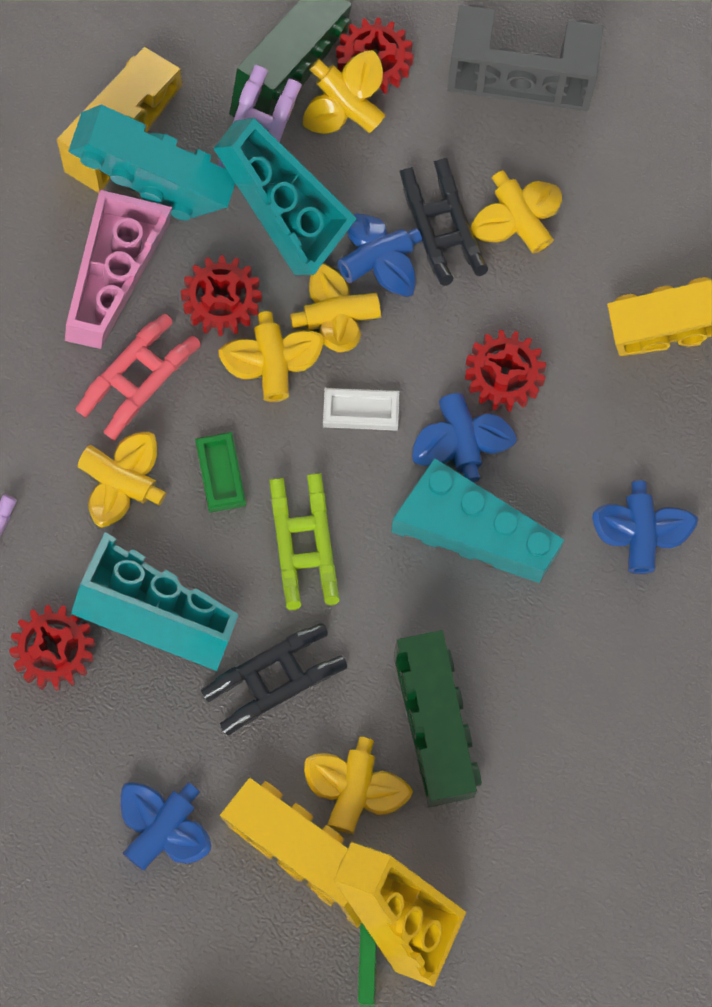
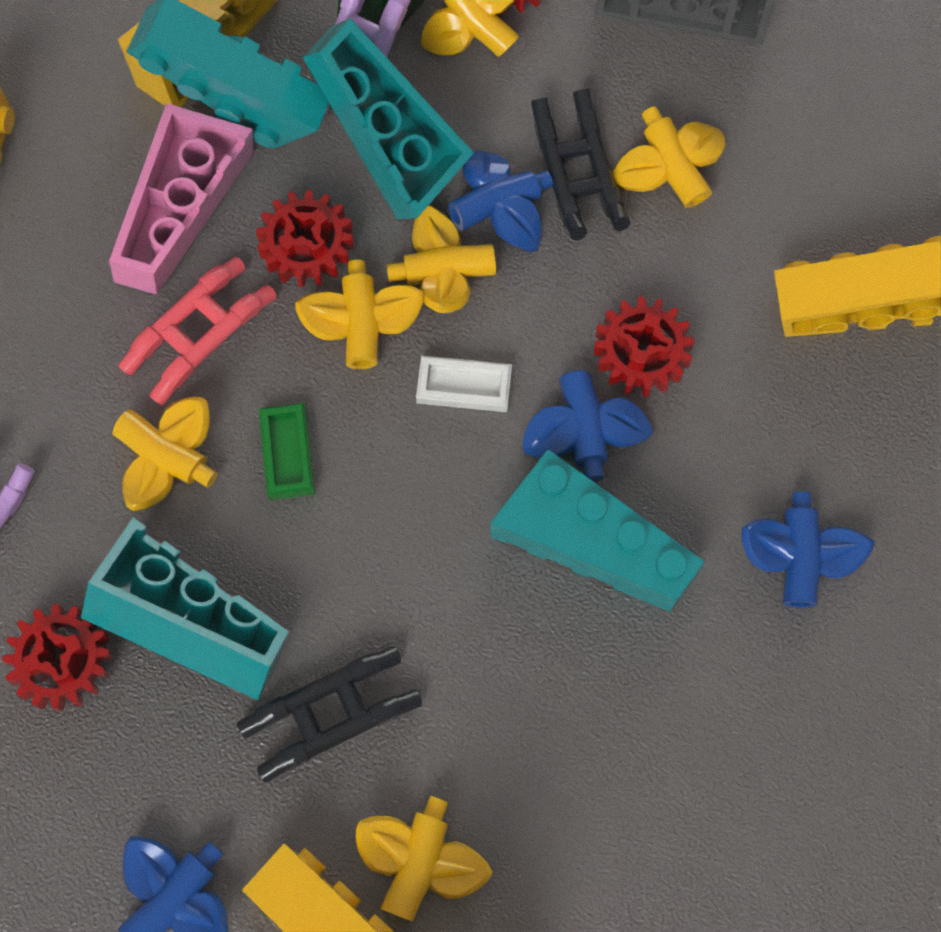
camera: 10 degrees right, 0 degrees up
(316, 521) = (363, 567): lime piece -> none
(435, 718) = (527, 781): dark green wedge -> none

